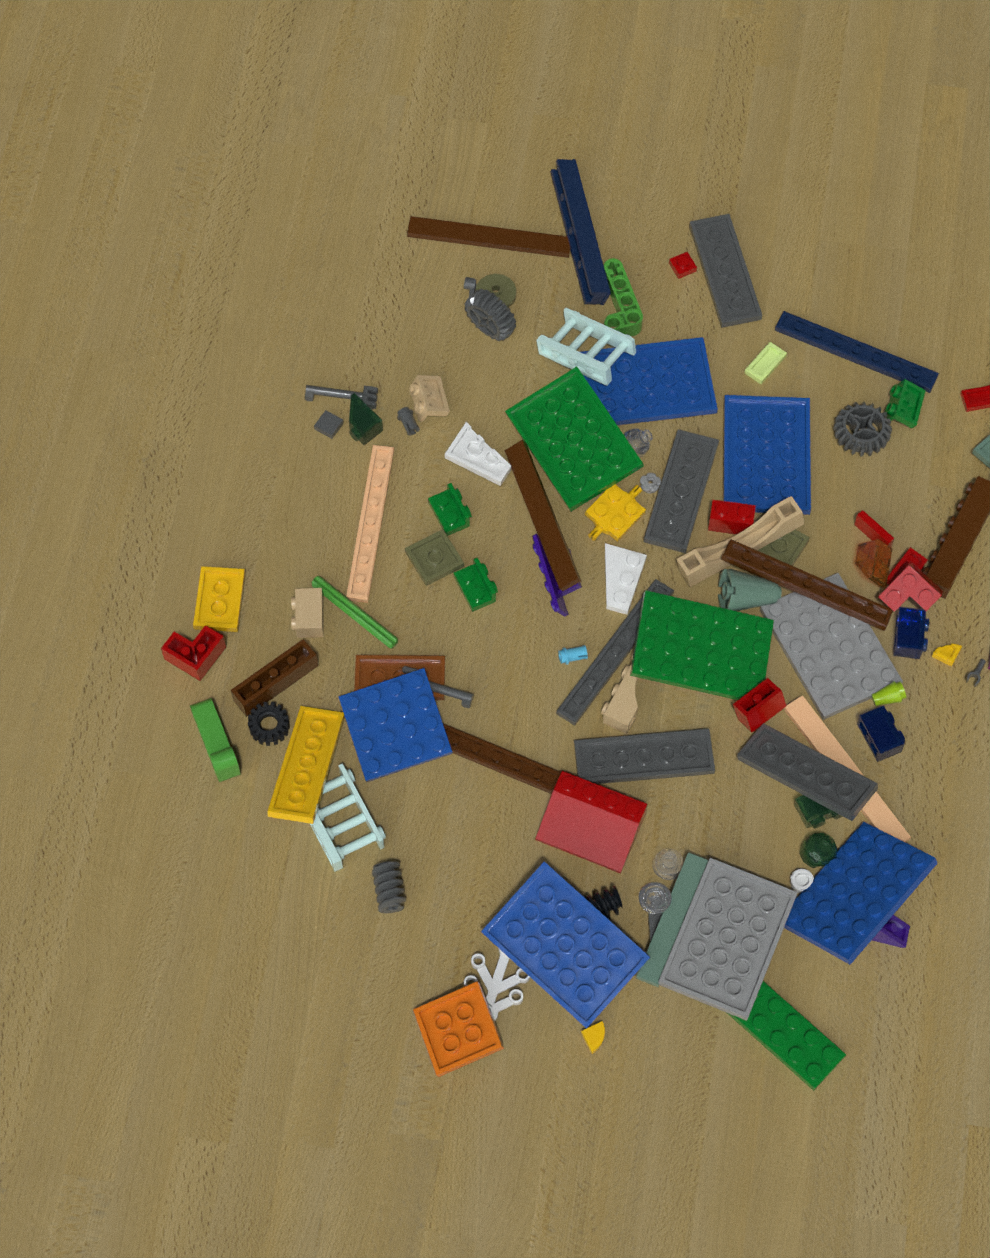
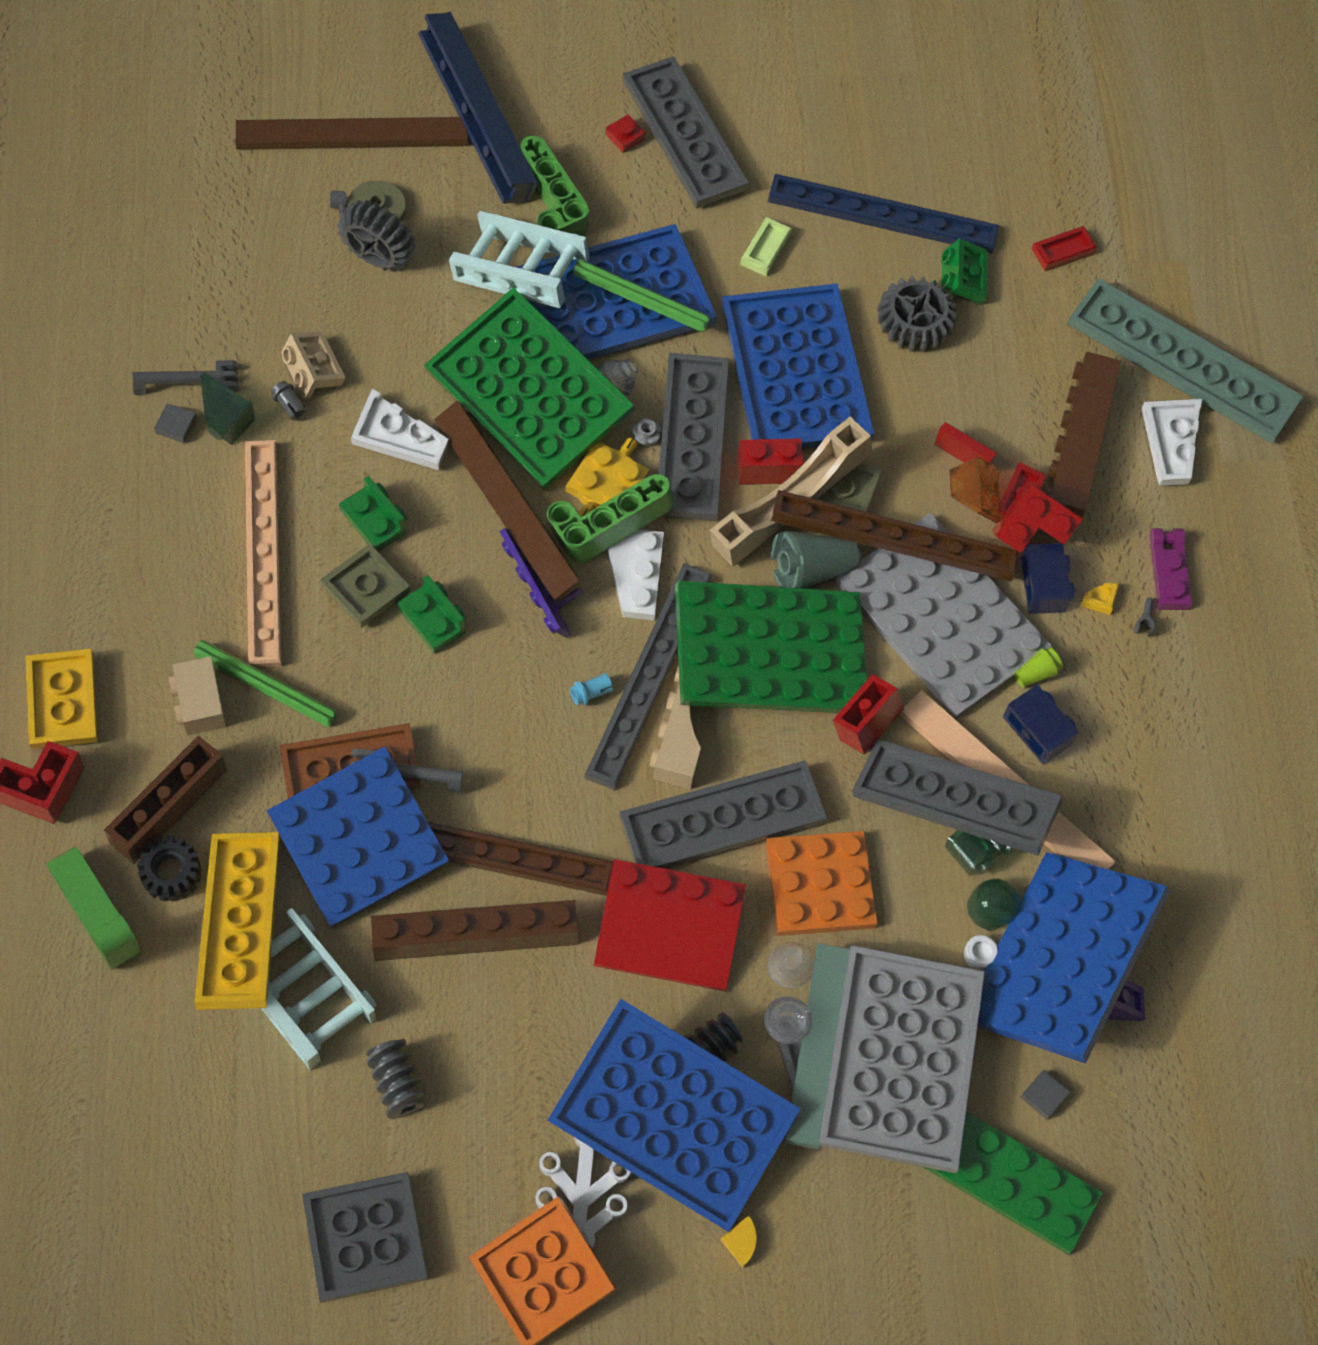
camera: 20 degrees left, 0 degrees up
(348, 983) = (364, 1237): none -> dark grey plate
(460, 800) = (474, 930): none -> reddish brown brick
(640, 531) = (648, 497): none -> bright green beam
(666, 385) = (641, 295): none -> bright green axle
(701, 813) = (820, 883): none -> orange plate
(823, 983) = (1045, 1094): none -> dark grey tile

